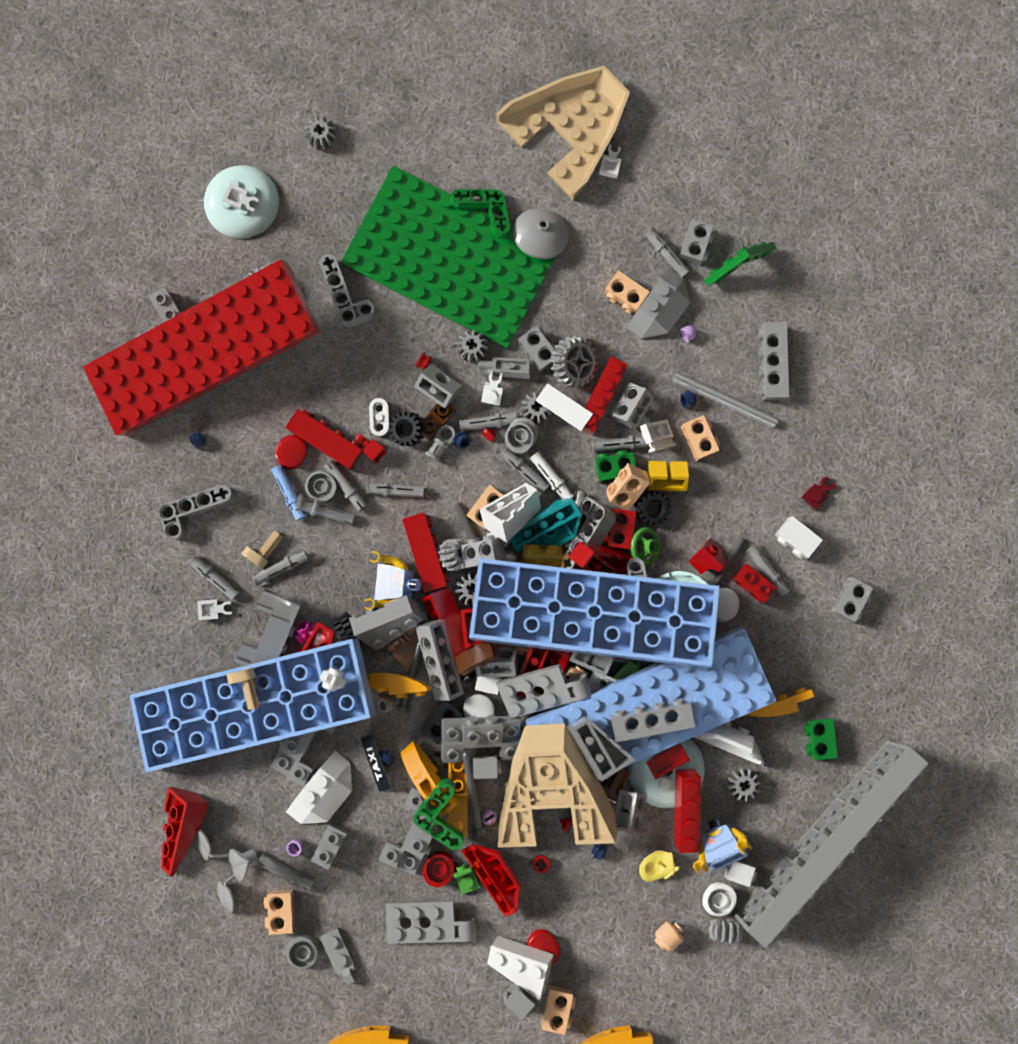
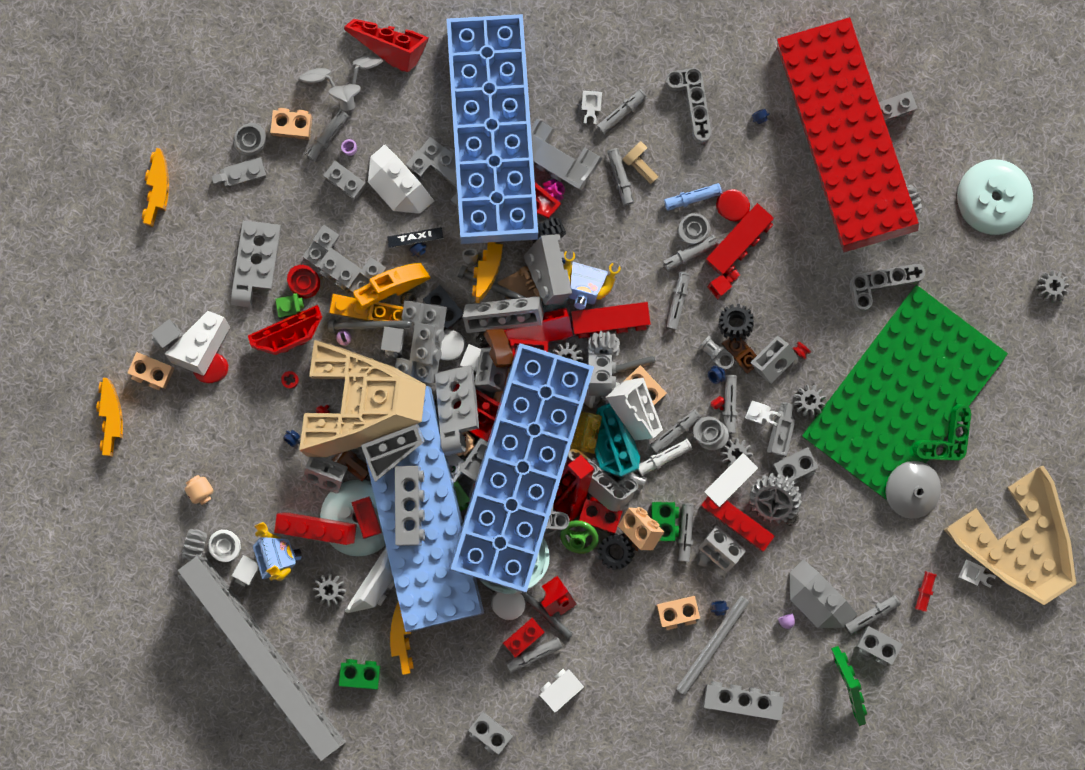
camera: 100 degrees right, 0 degrees up
(237, 197) = (996, 192): white plate -> none
(246, 677) = (519, 127): tan piece -> none
(315, 508) = (672, 220): light grey pin -> none
(332, 679) = (502, 207): white gear -> none
(379, 417) = (753, 297): white plate -> none
(432, 814) = (358, 281): green beam -> none
(630, 288) = (841, 568): light nougat brick -> none
(635, 207) = (925, 591): none -> red pin
(658, 435) = (687, 569): white plate -> none
(658, 866) = (267, 491): light yellow hat -> none
(668, 476) = (645, 571): yellow piece -> none
(816, 494) = (600, 718): dark red plate -> none

